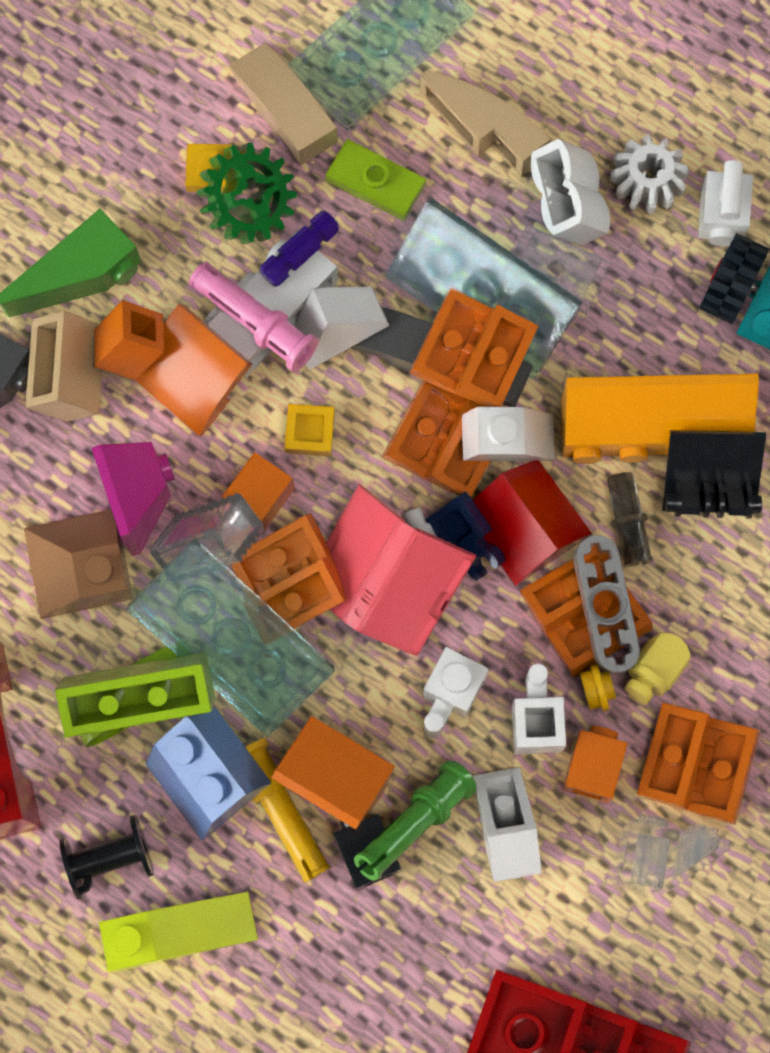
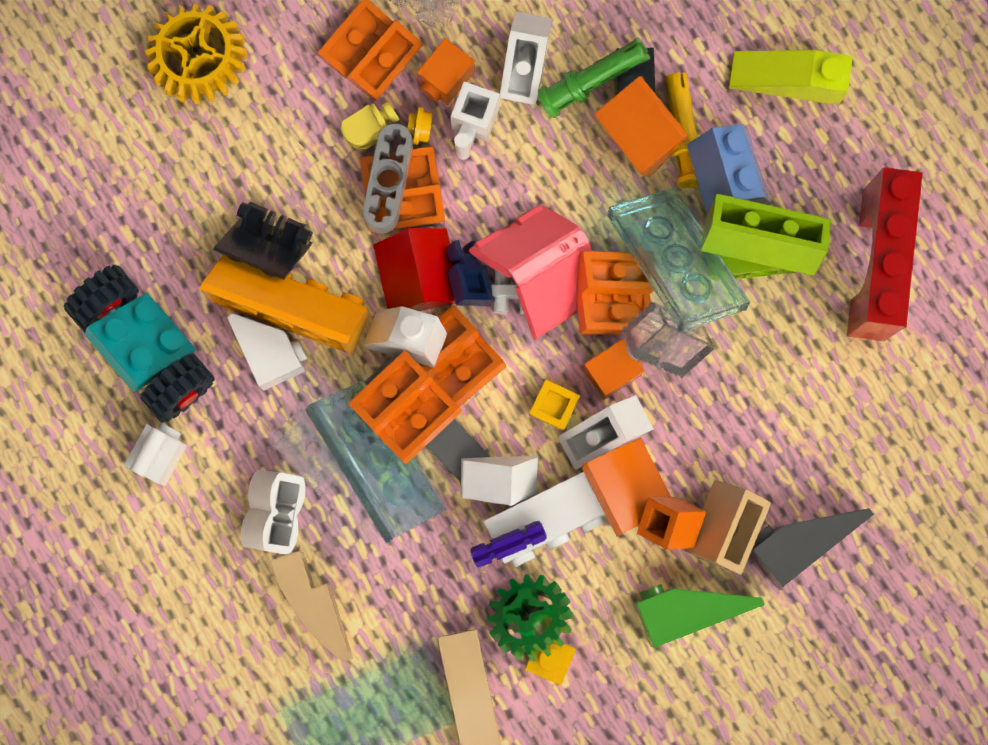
camera: 160 degrees left, 5 degrees up
(78, 564) = (769, 372): medium nougat slope -> none
(105, 858) = (825, 142): black piece -> none
(135, 488) = (710, 406): dark pink slope -> none
(238, 421) = (605, 431): none -> white slope
(269, 327) = (558, 485): bright pink pin -> none
(375, 179) = (420, 594): lime plate -> none
(451, 689) = (526, 165): white brick -> none
(629, 519) = (341, 241): clear smoke axle -> none
(646, 190) = (198, 493): white gear -> none
(653, 352) = (268, 351): none -> white slope

